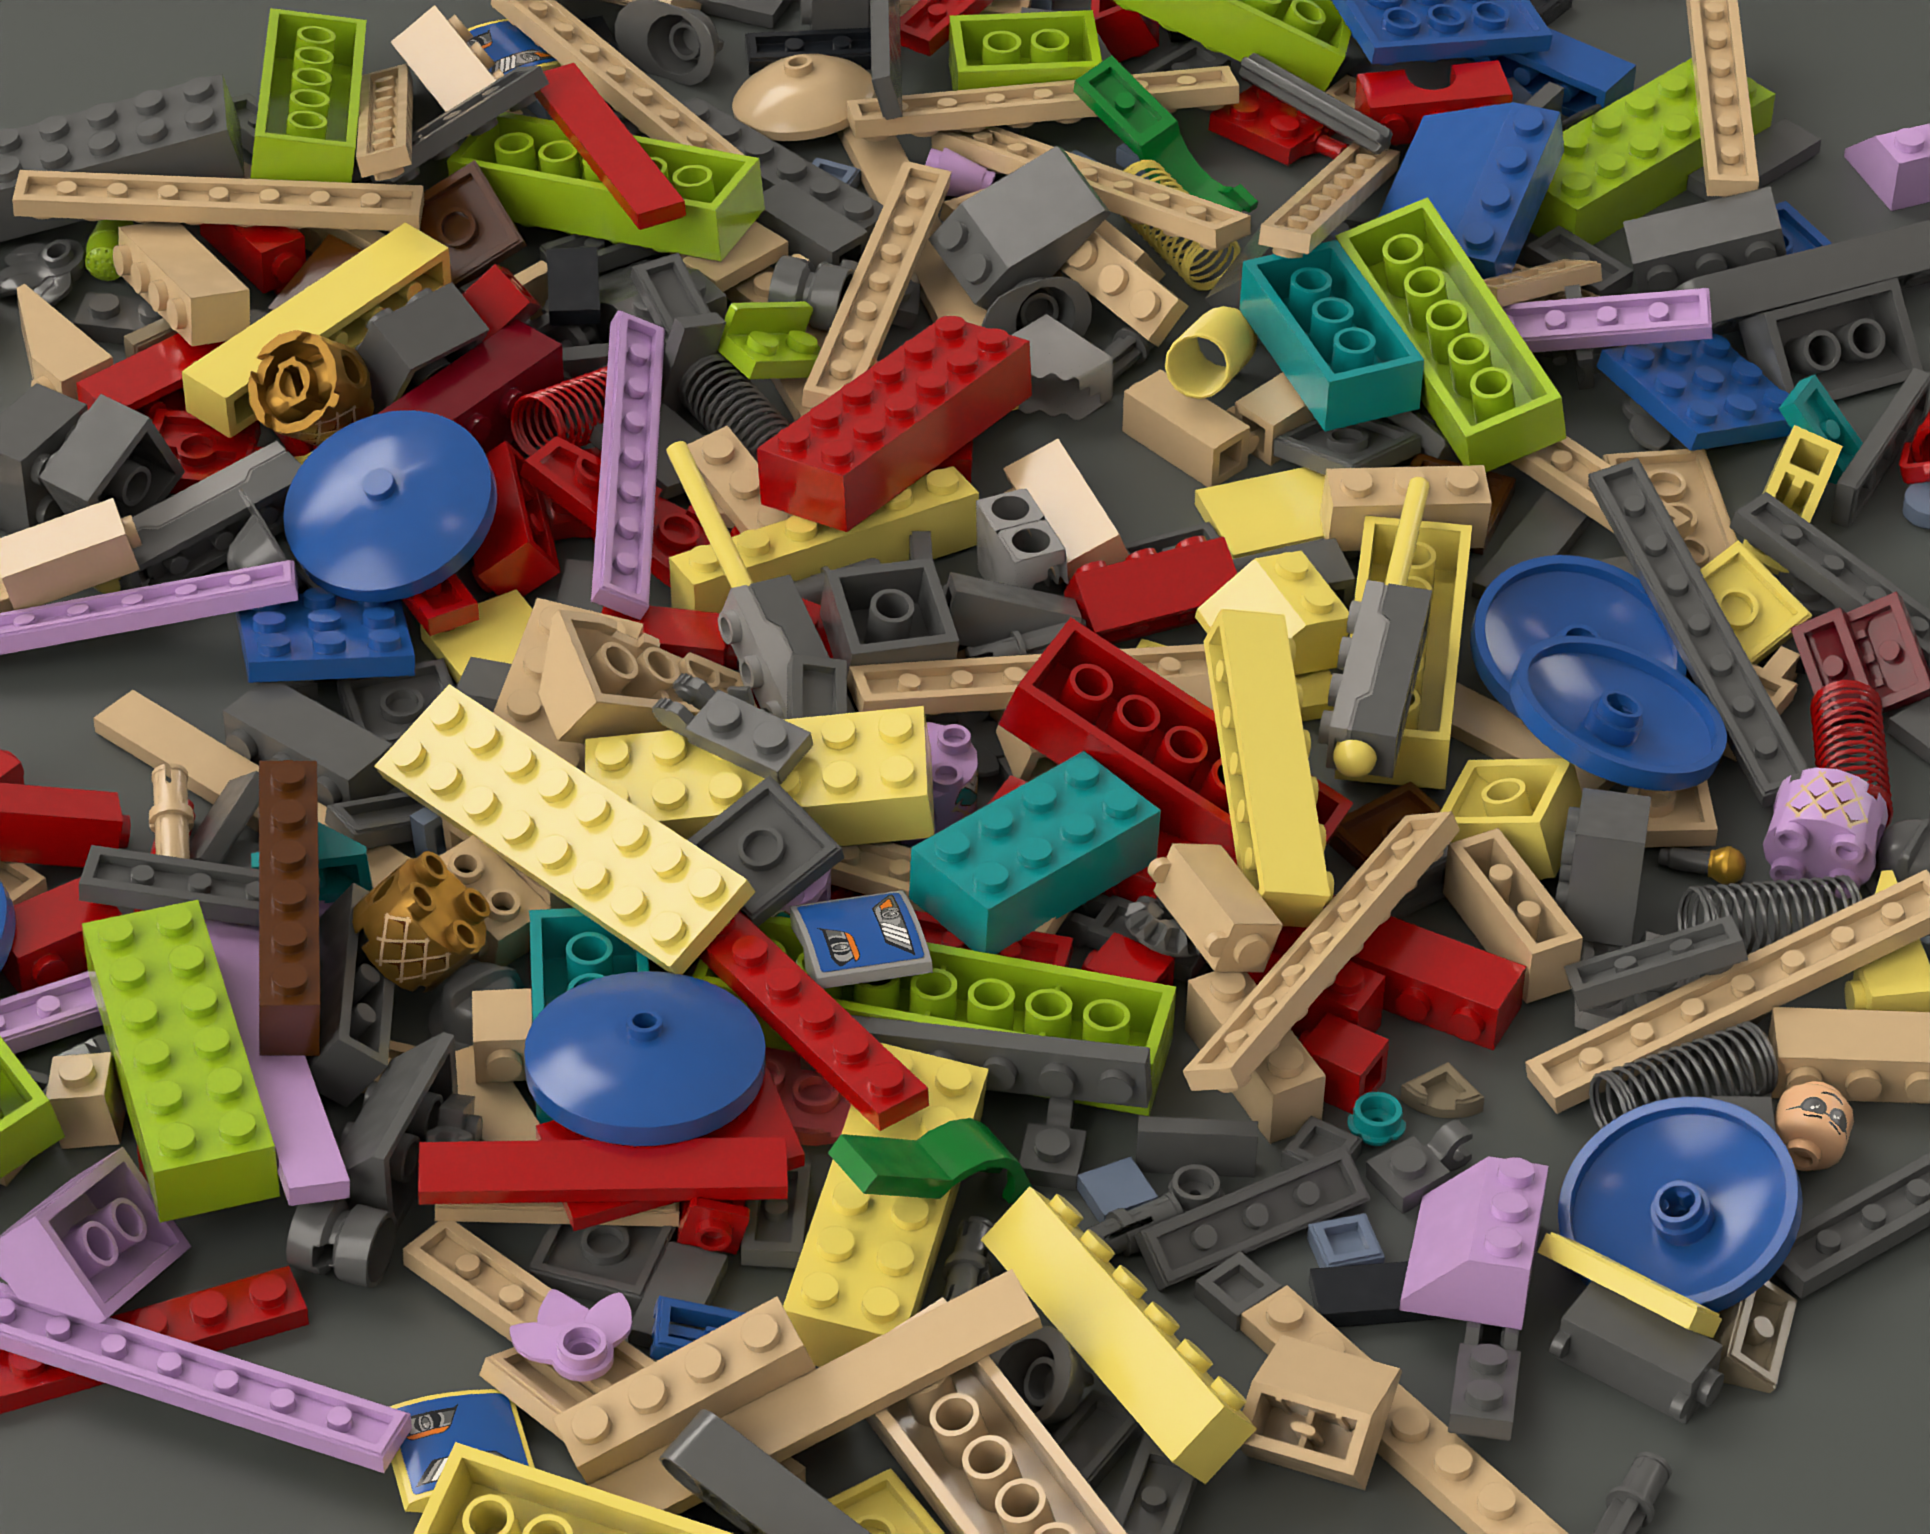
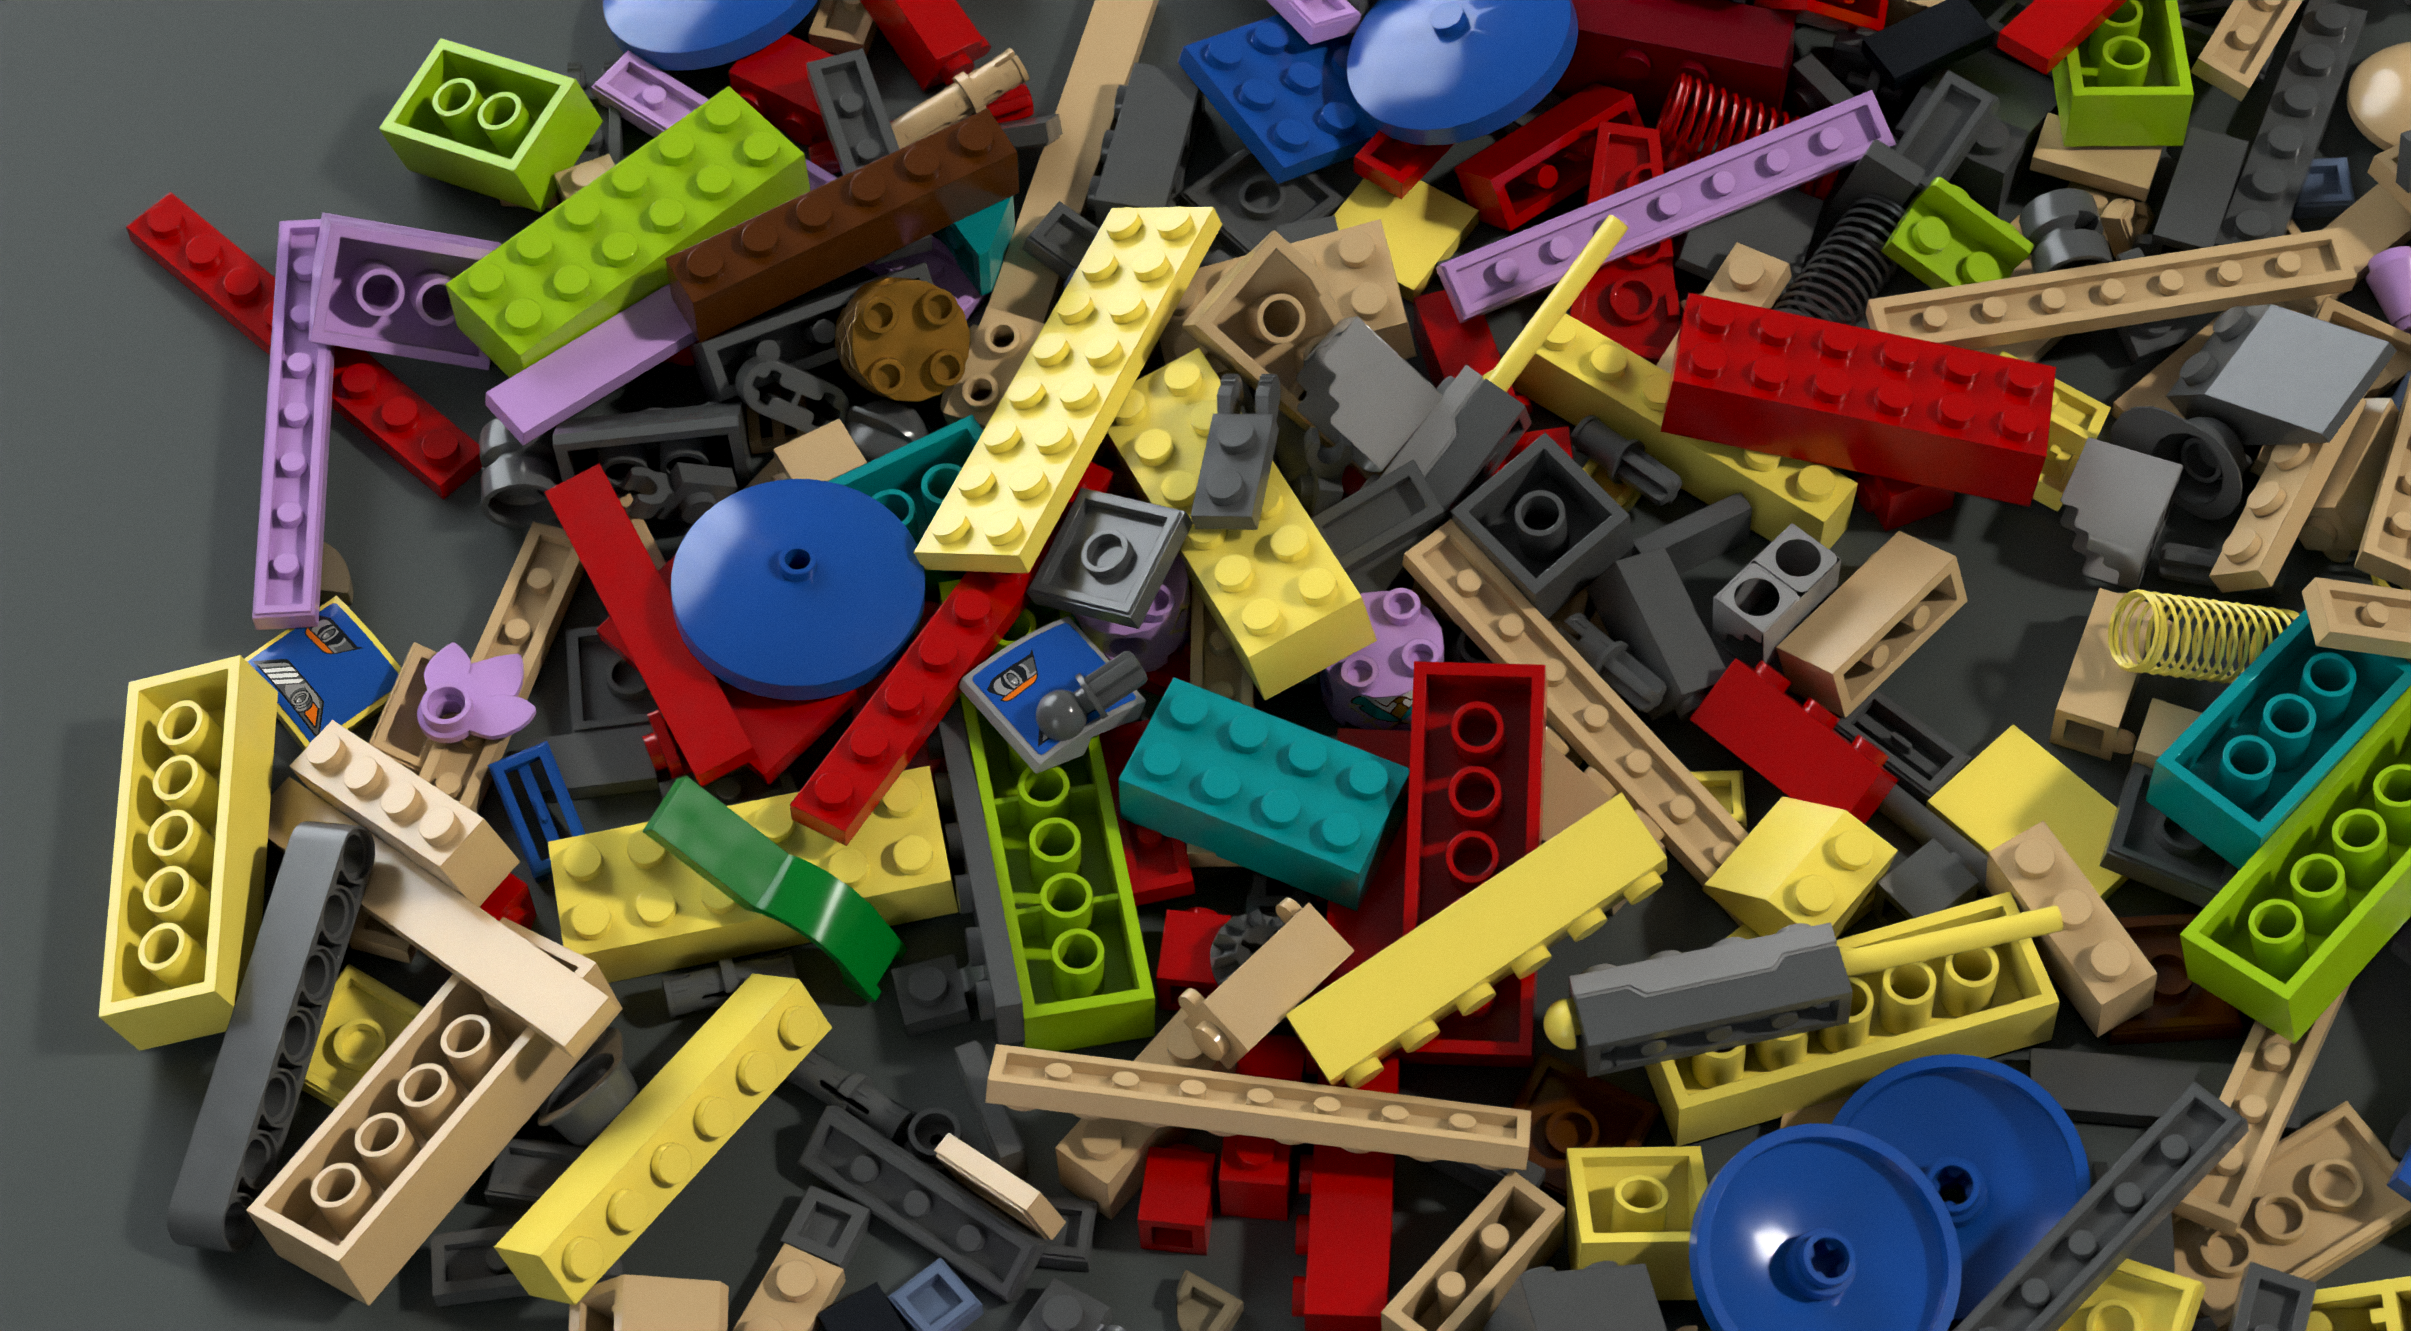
camera: 70 degrees right, 15 degrees up
(411, 1021) = (798, 383): none -> dark grey beam
(714, 646) = (1364, 393): none -> light grey piece
(897, 898) = (1064, 713): none -> dark grey axle
(1114, 1187) = (910, 1070): sand blue tile -> none
(1278, 1150) = (999, 1187): none -> tan tile
(1377, 1119) = (1118, 1250): teal plate -> none

